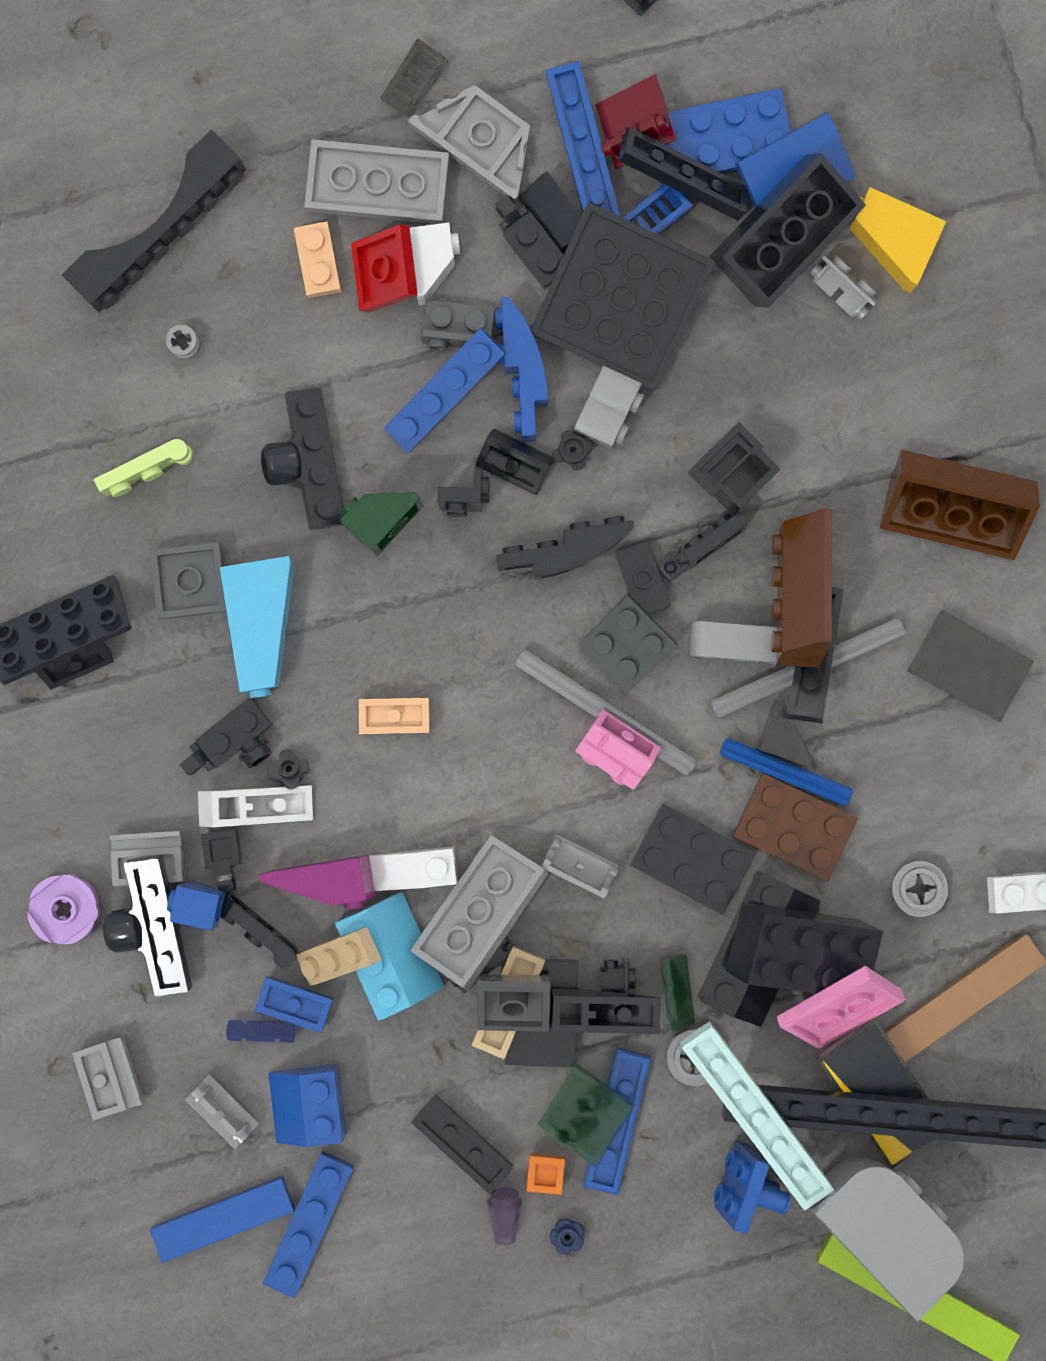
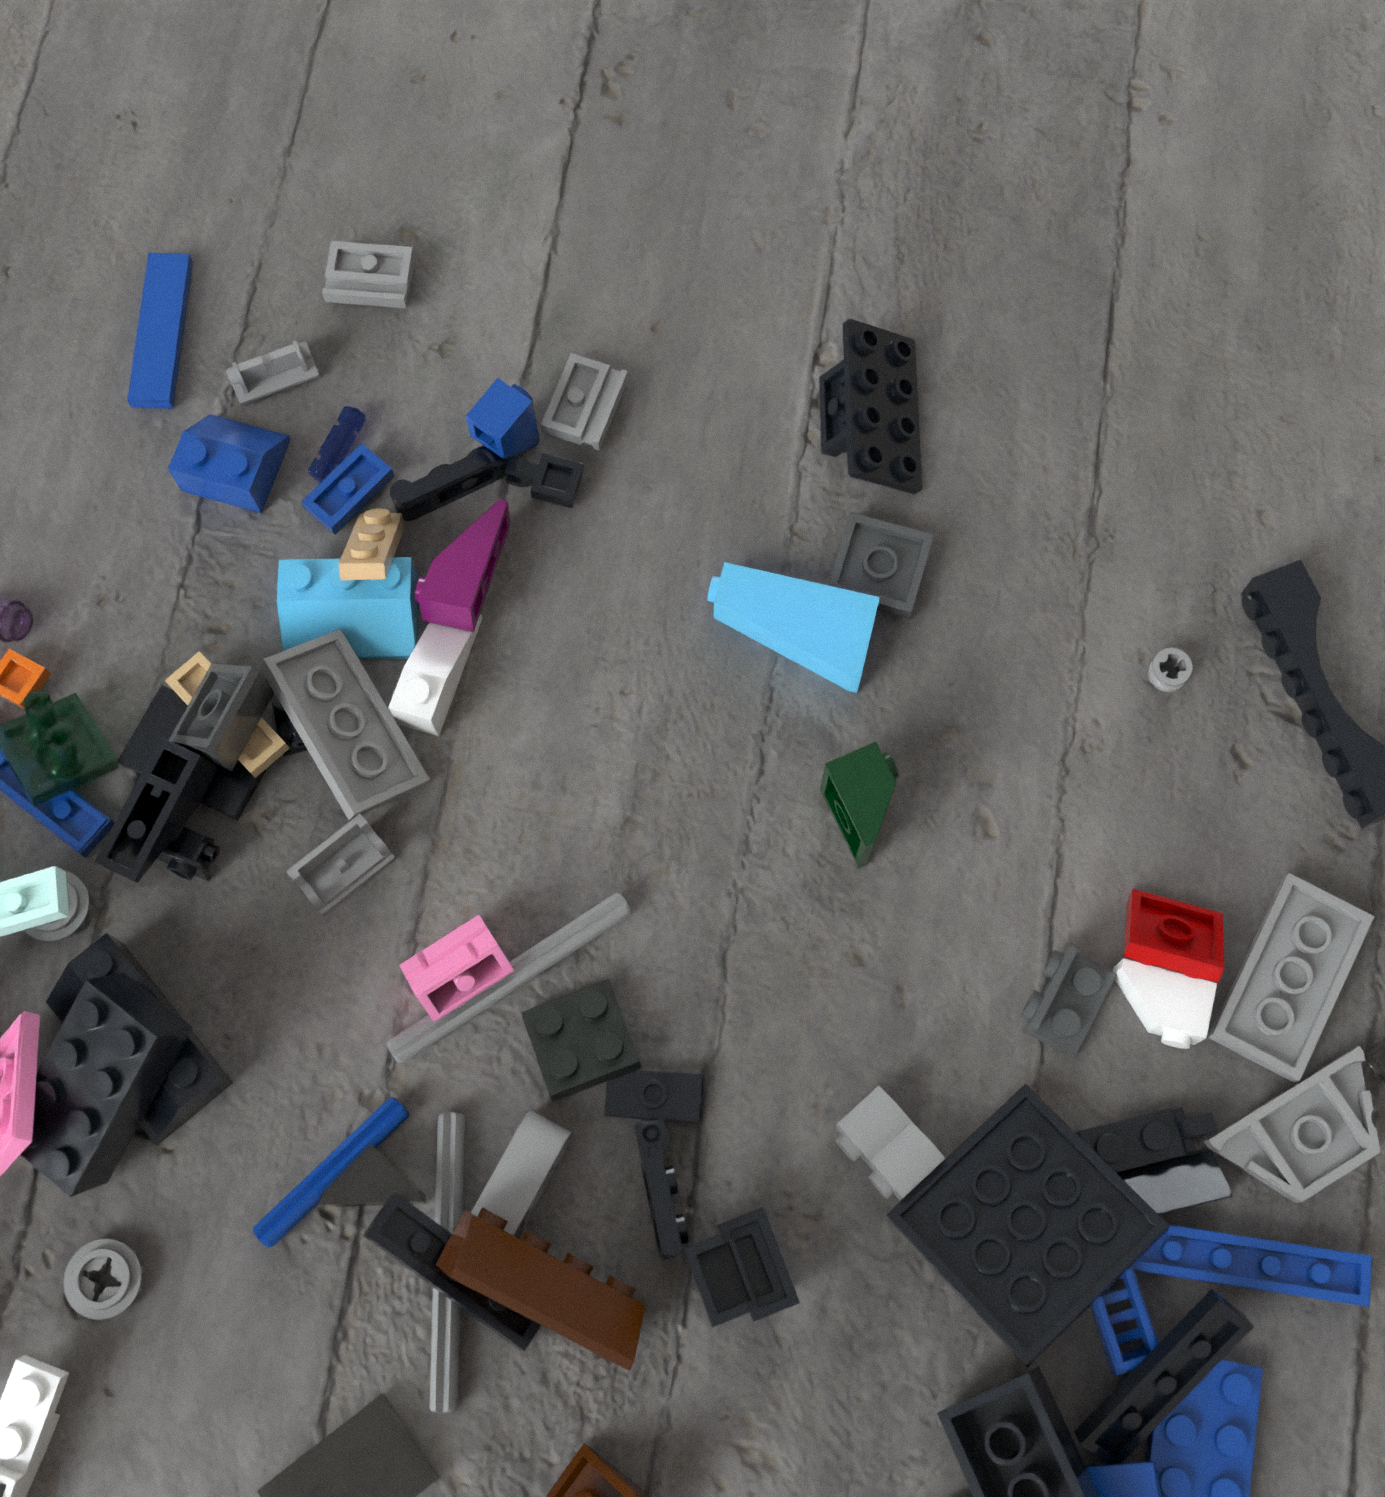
camera: 115 degrees right, 15 degrees down
(61, 929) = (575, 320): lavender plate -> none
(145, 467) = (1033, 567): yellowish green plate -> none
(148, 927) = (512, 359): plate -> none
(226, 737) = (680, 537): black hinge -> none
(254, 752) = (650, 558): black plate -> none
(254, 806) = (587, 533): white slope -> none
(289, 779) = (603, 594): black plate -> none
(307, 459) = (972, 751): black plate -> none
(308, 1224) = (106, 412): blue plate -> none
(317, 259) = (1216, 866): light nougat plate -> none
(394, 716) = (620, 727): light nougat plate -> none
(445, 390) = (991, 947): blue plate -> none
(462, 1144) = (100, 603): black plate -> none
(463, 500) = (843, 930): black bracket -> none
(514, 461) = (869, 1000): black slope -> none
(525, 360) = (999, 1063): blue slope -> none
(580, 547) = (727, 1030): black slope -> none
(582, 447) = (853, 1064): black plate -> none
(635, 107) = (1271, 1356): dark red hinge -> none
(677, 991) = (138, 918): clear green slope -> none
(692, 859) = (284, 1007): black plate -> none
(795, 827) = (258, 1153): reddish brown plate -> none

